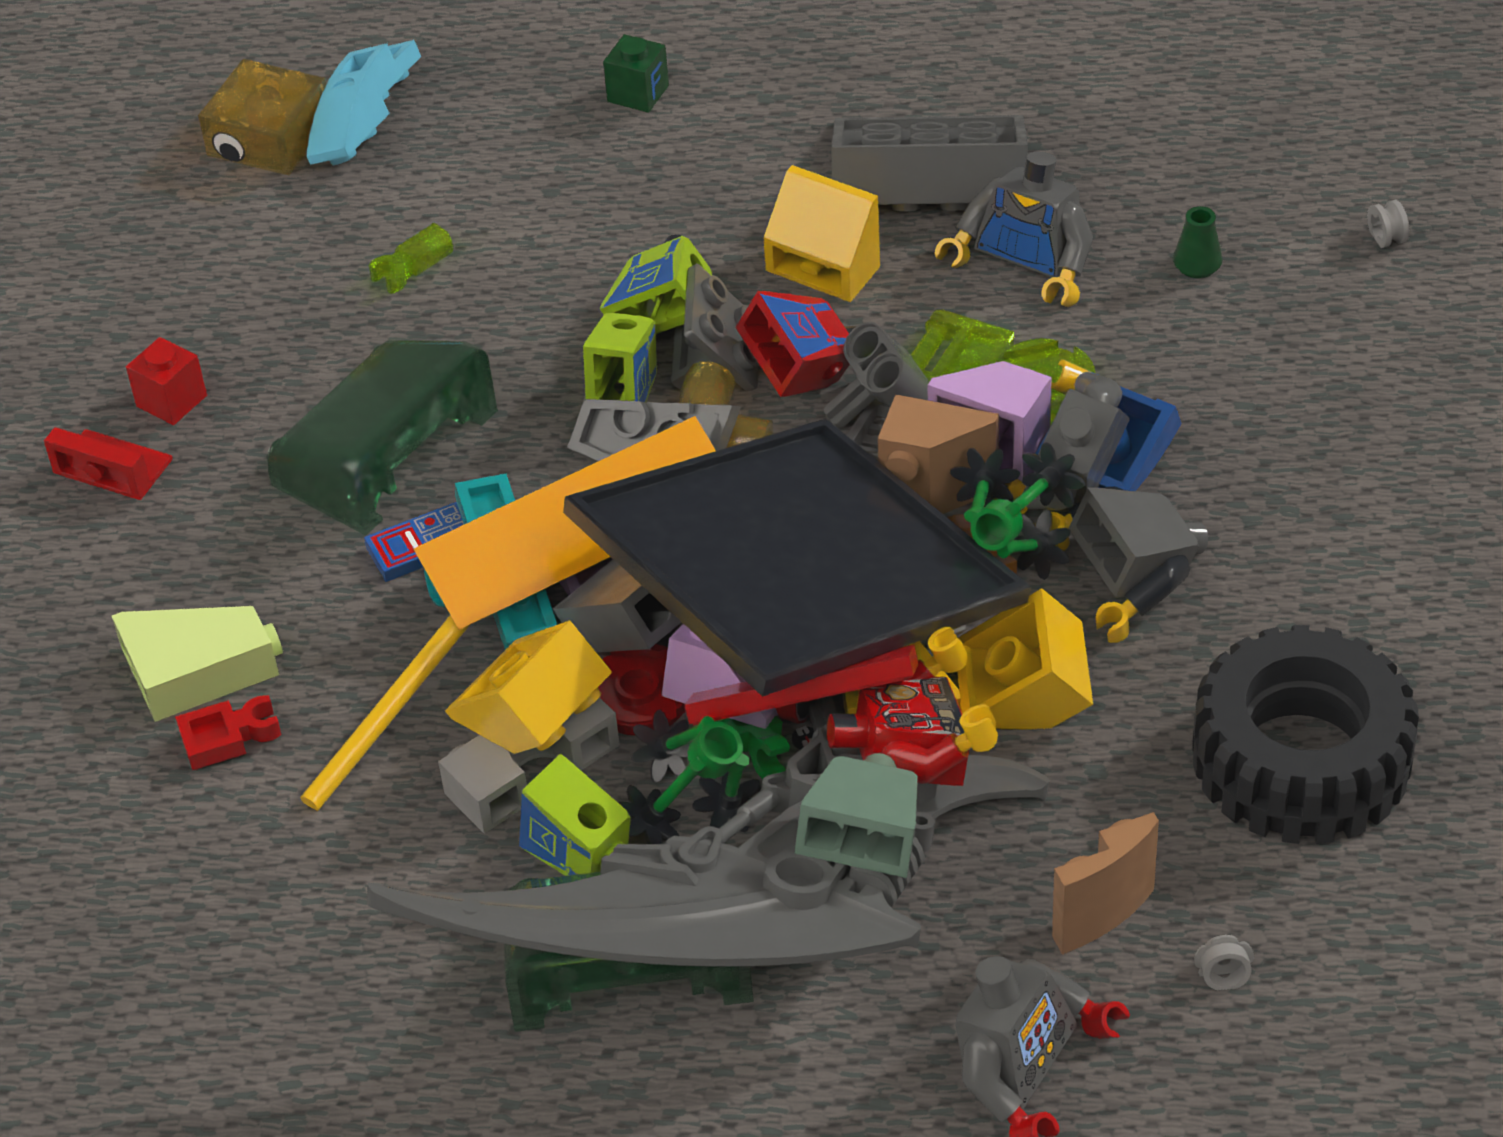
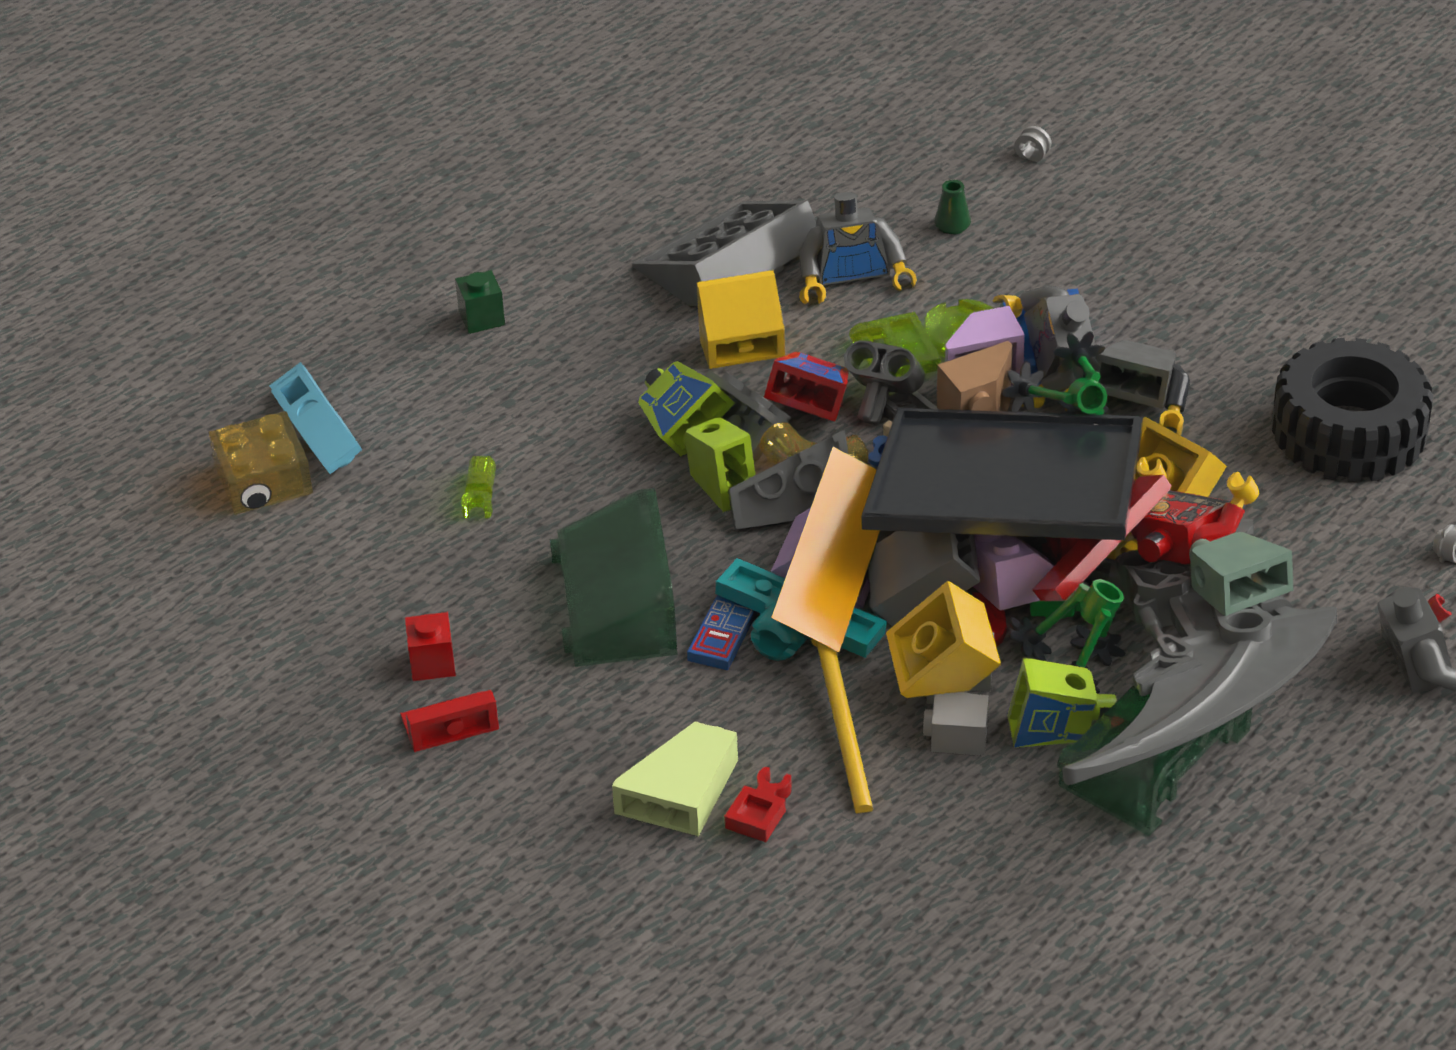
camera: 45 degrees left, 5 degrees down
(1107, 887) = (1361, 537): medium nougat slope -> none

